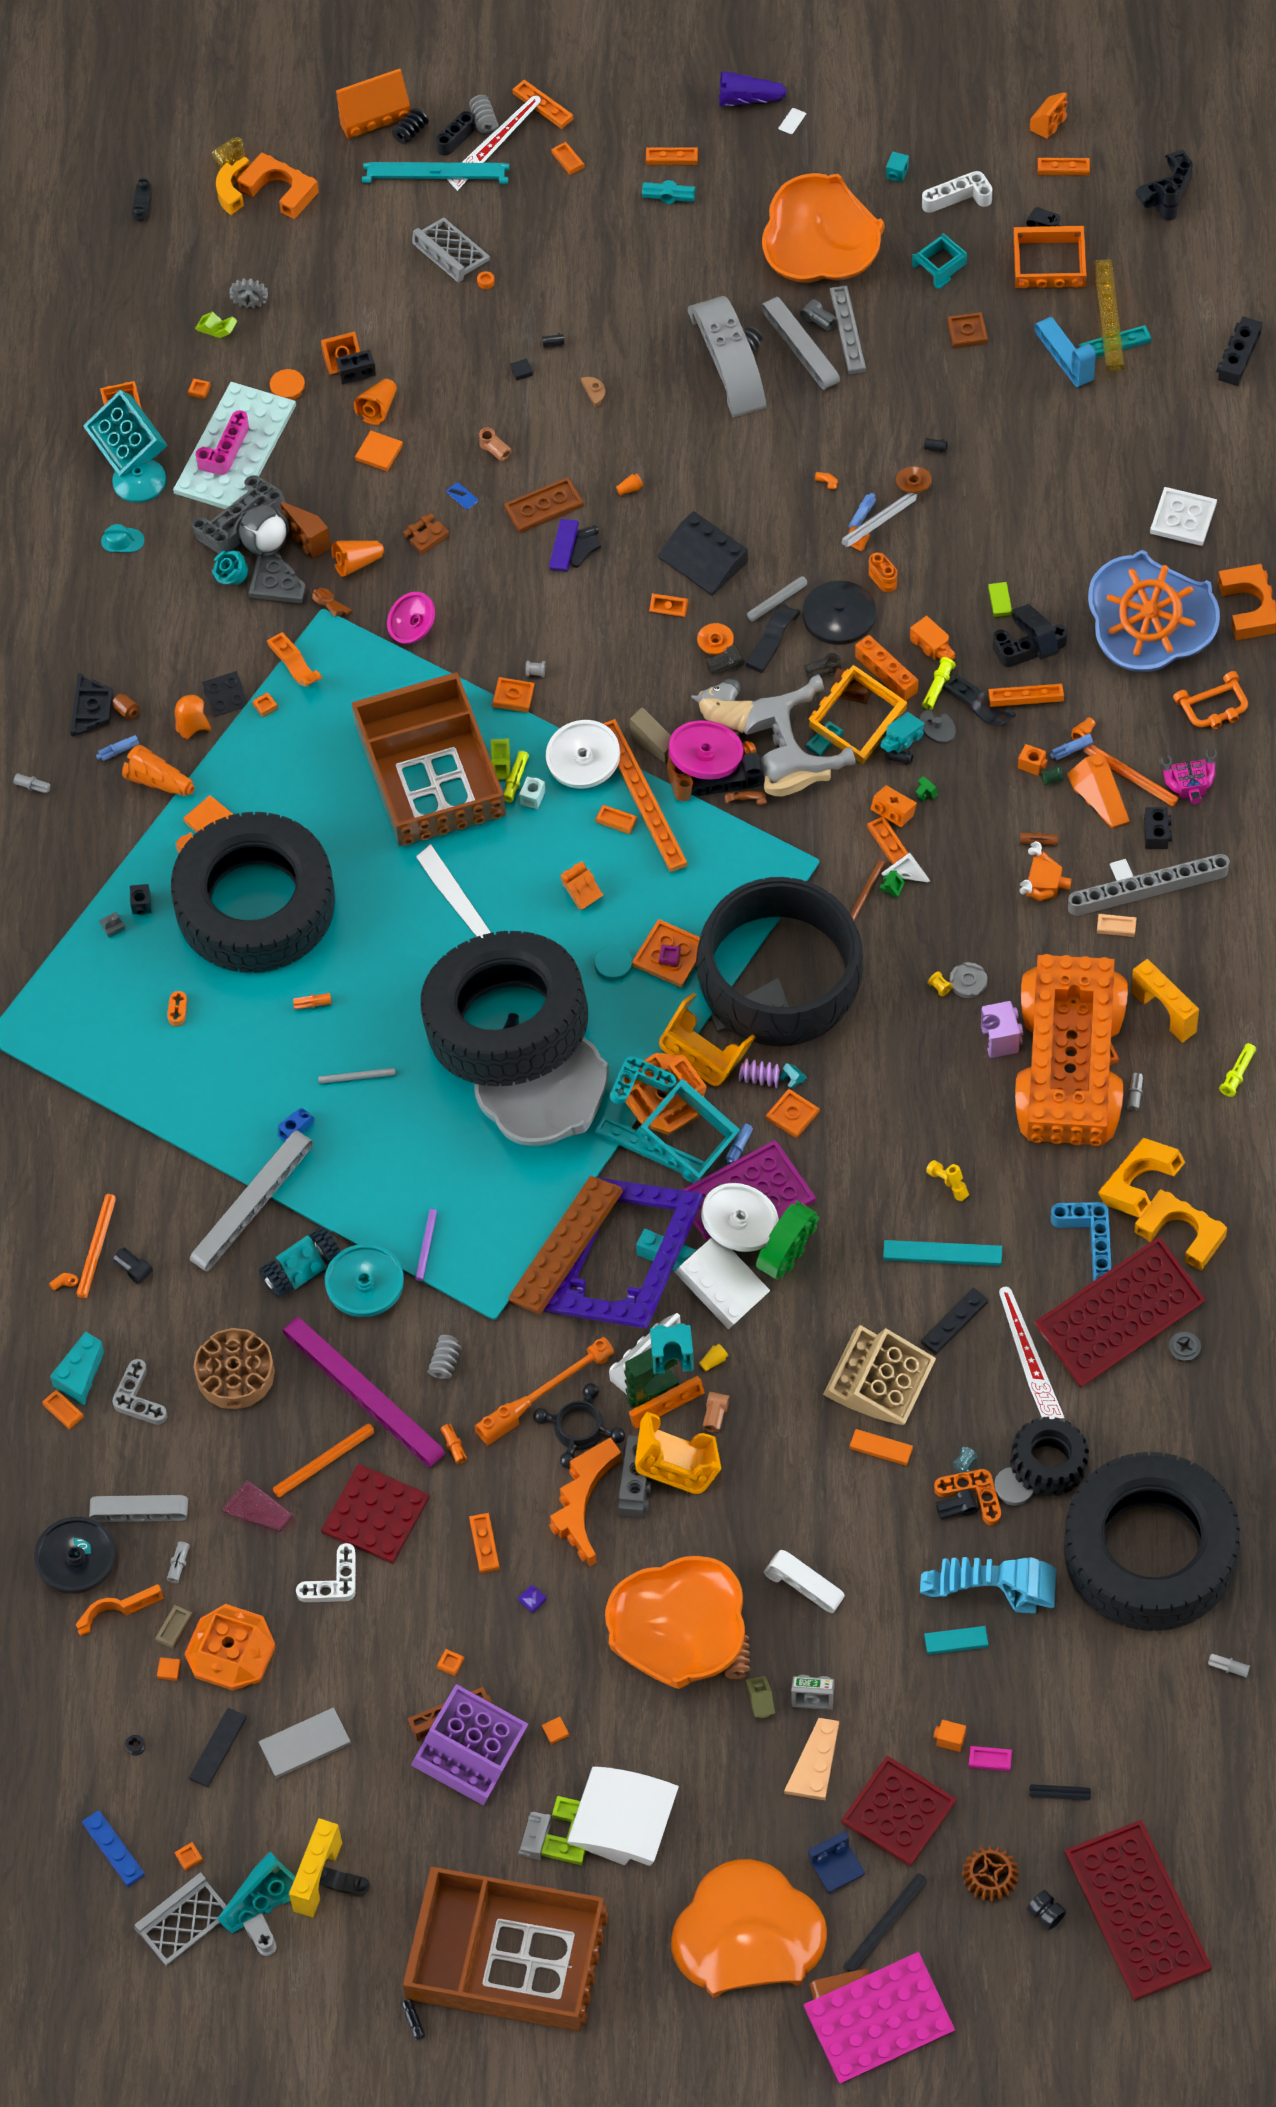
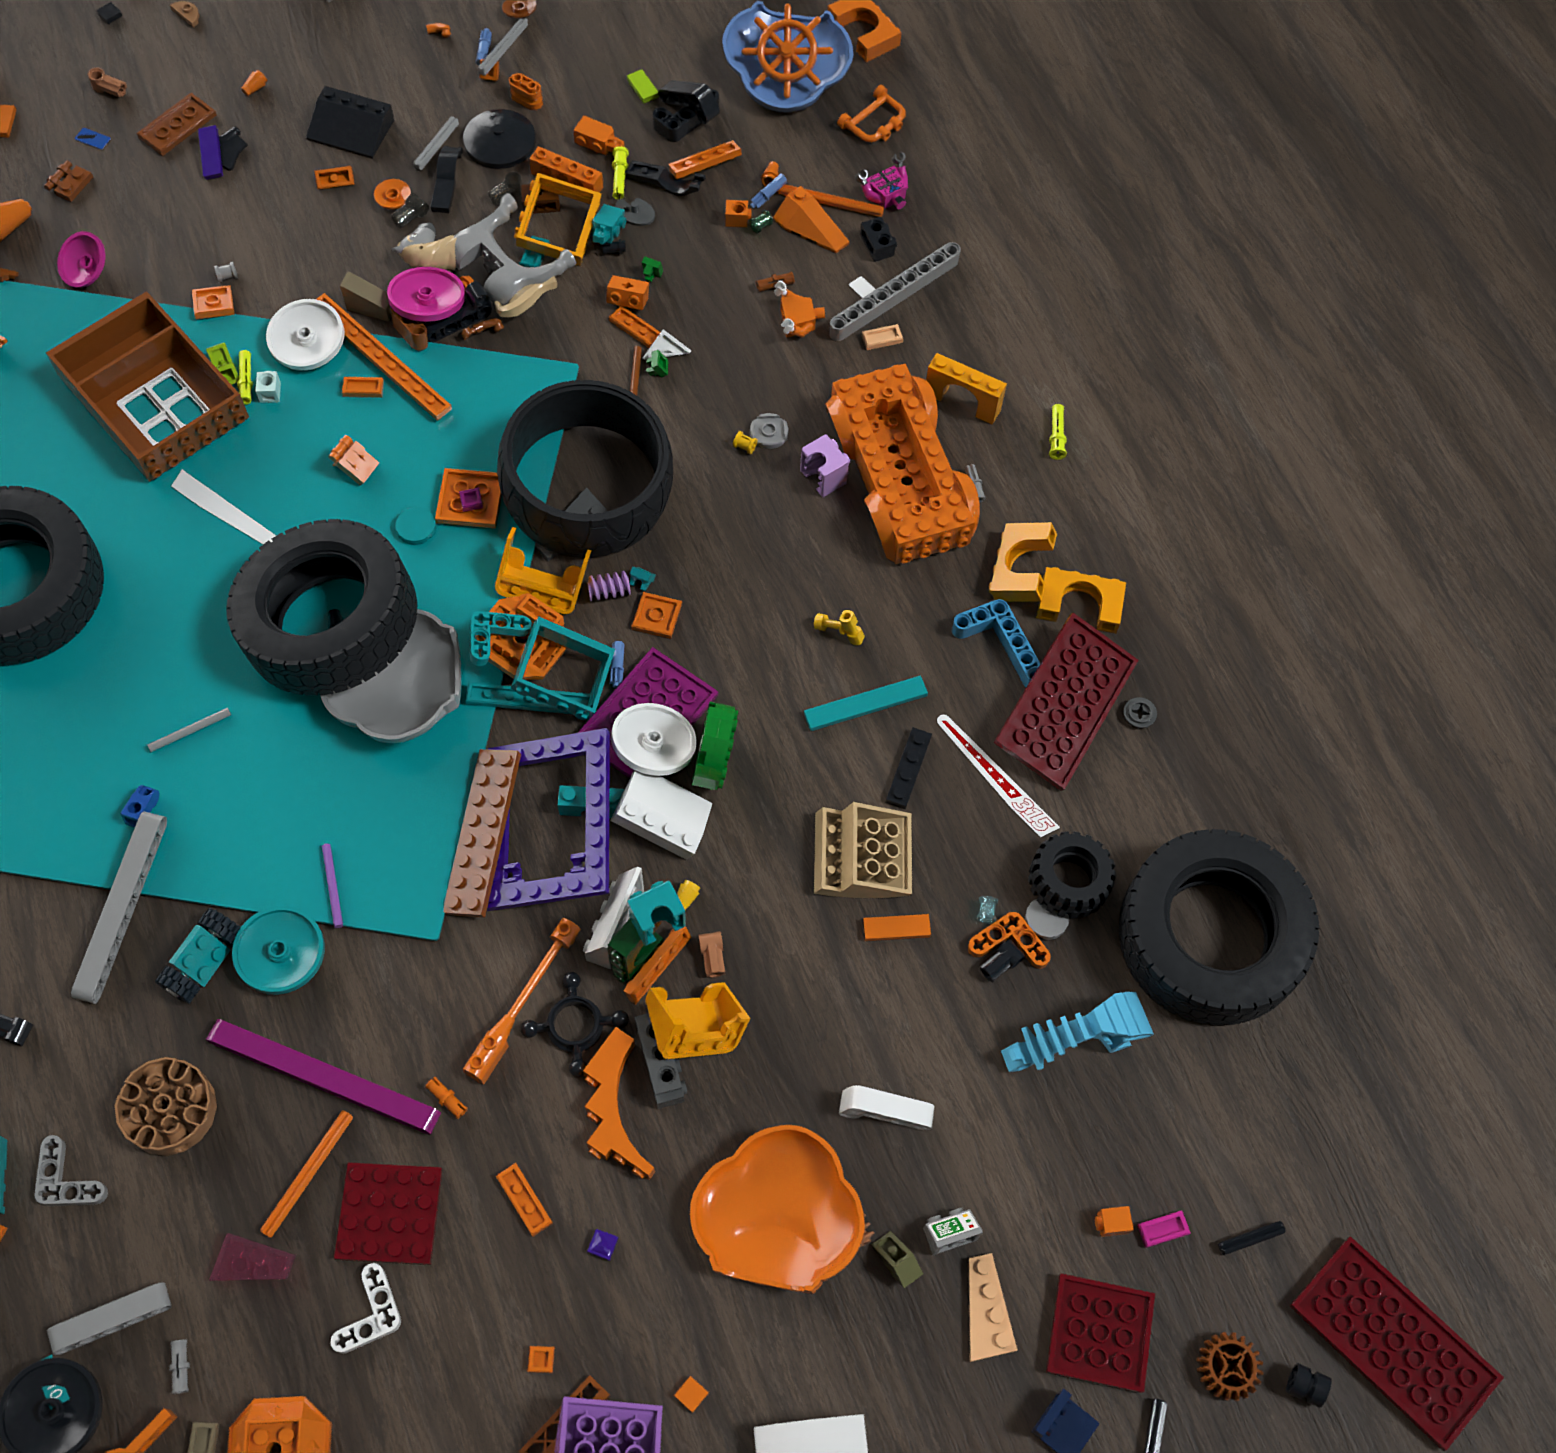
camera: 30 degrees left, 5 degrees up
(312, 1001) = (112, 667): orange axle -> none
(444, 1356) = (398, 1003): light grey piece -> none
(956, 1640) = (1067, 1109): teal tile -> none
(1229, 1665) = (1346, 1026): light grey axle -> none

